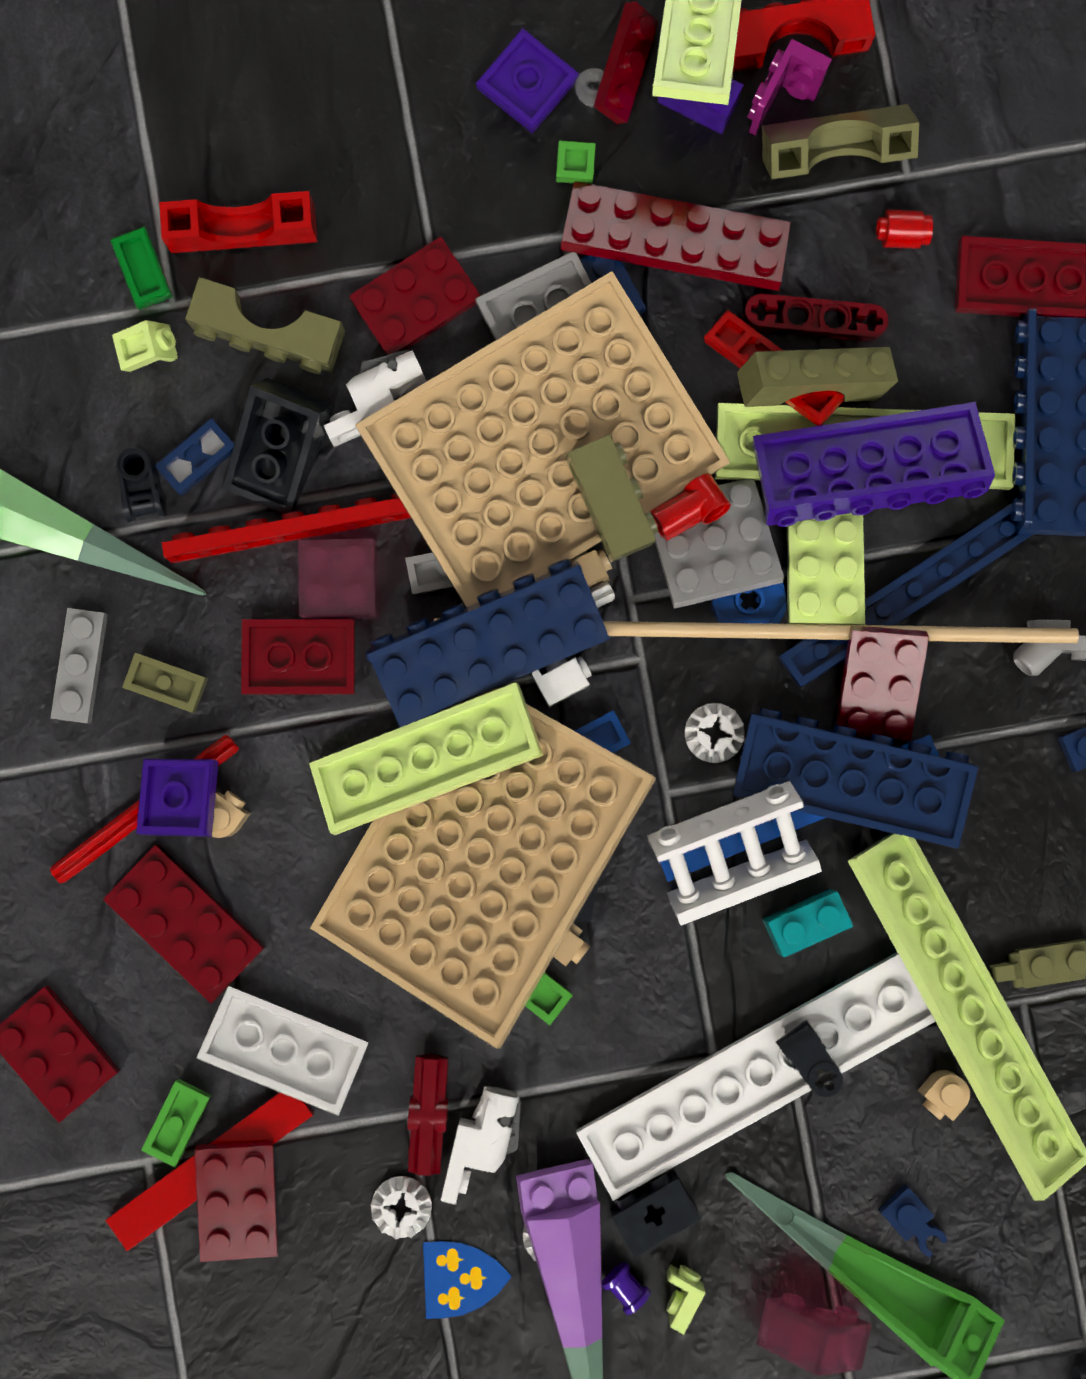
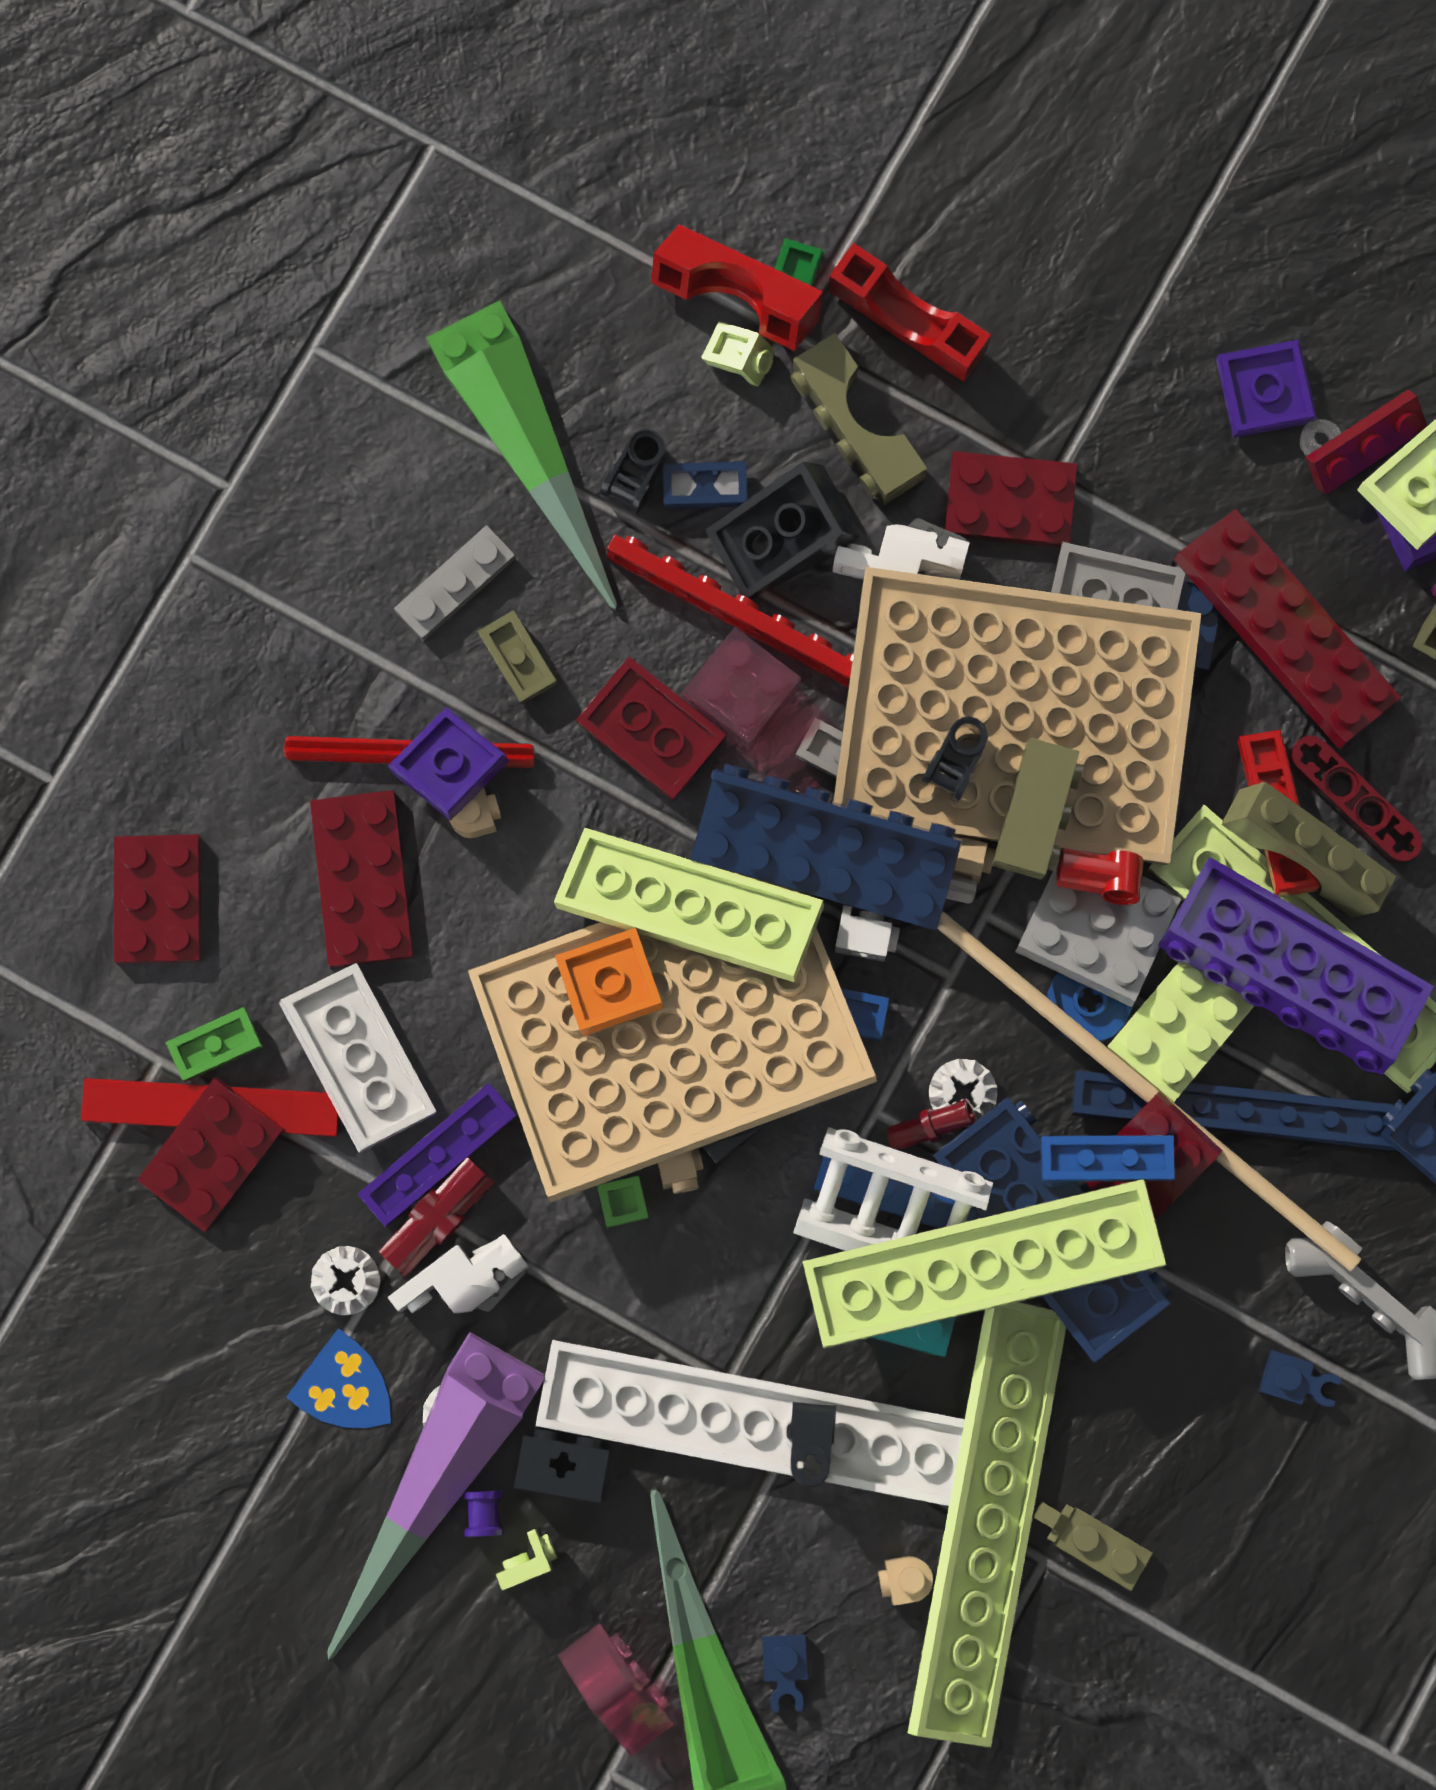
camera: 45 degrees right, 5 degrees down
(62, 307) = (698, 265): none -> red arch
(393, 1071) = (437, 1155): none -> dark purple plate
(414, 859) = (609, 982): none -> orange plate
(528, 510) = (955, 760): none -> black piece
(575, 162) = (1250, 493): bright green plate -> none
(713, 773) = (931, 1125): none -> dark red pin
(831, 844) = (984, 1263): none -> yellowish green plate
(856, 702) = (1107, 1158): none -> blue plate

